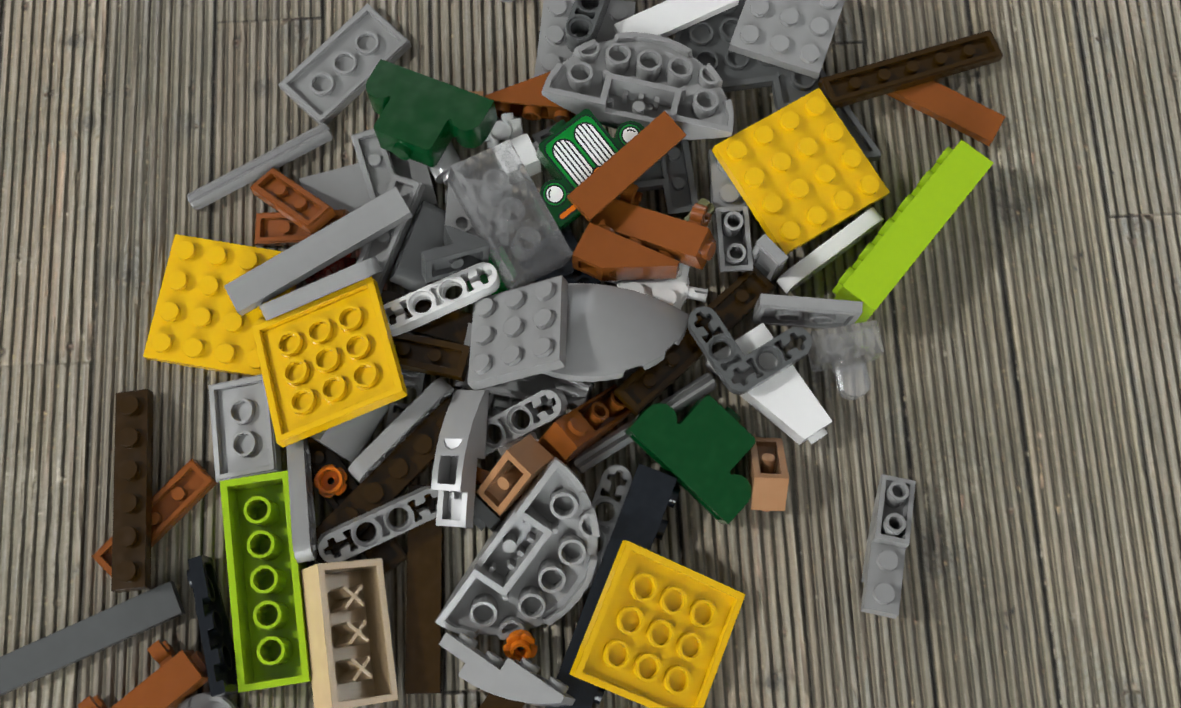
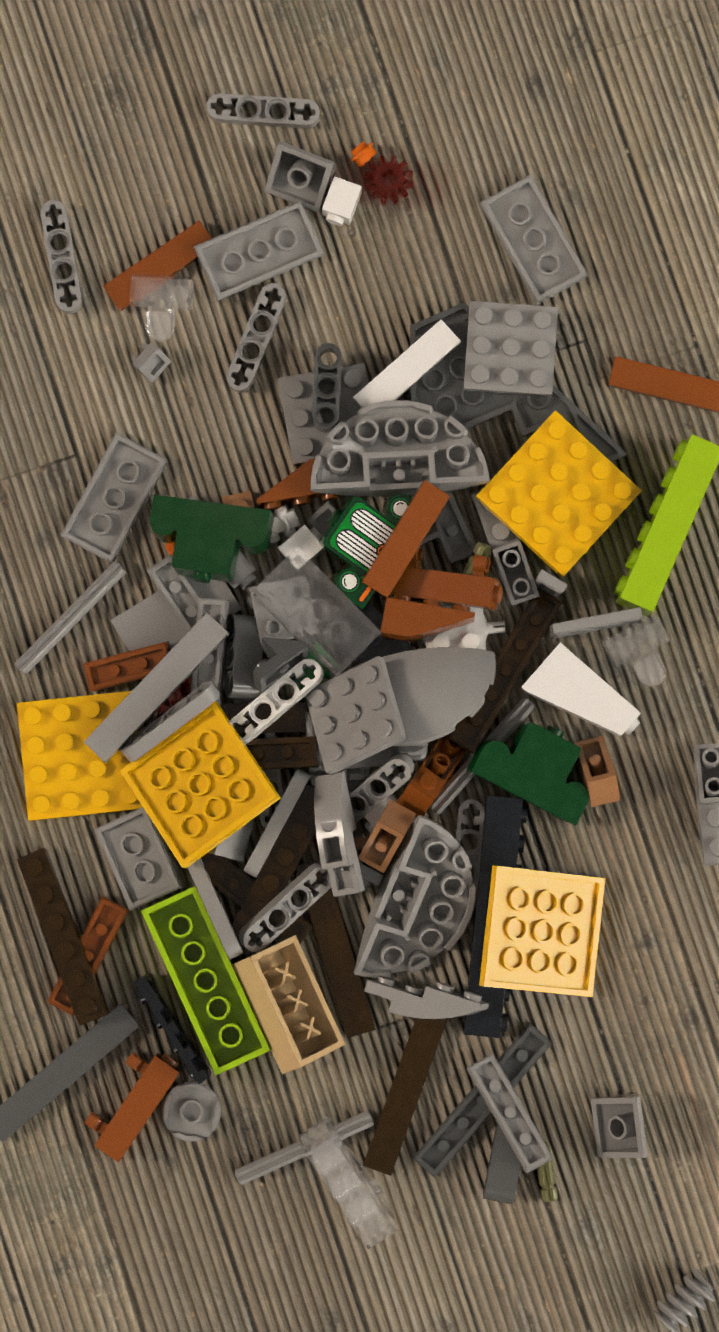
camera: 15 degrees left, 10 degrees up
(293, 201) = (114, 645): dark orange tile -> none
(324, 474) = (238, 883): orange plate -> none
(517, 639) = (428, 968): orange plate -> none
(737, 360) = (546, 684): dark grey beam -> none
(829, 250) = (602, 556): white beam -> none
(910, 69) = (633, 363): dark brown tile -> none

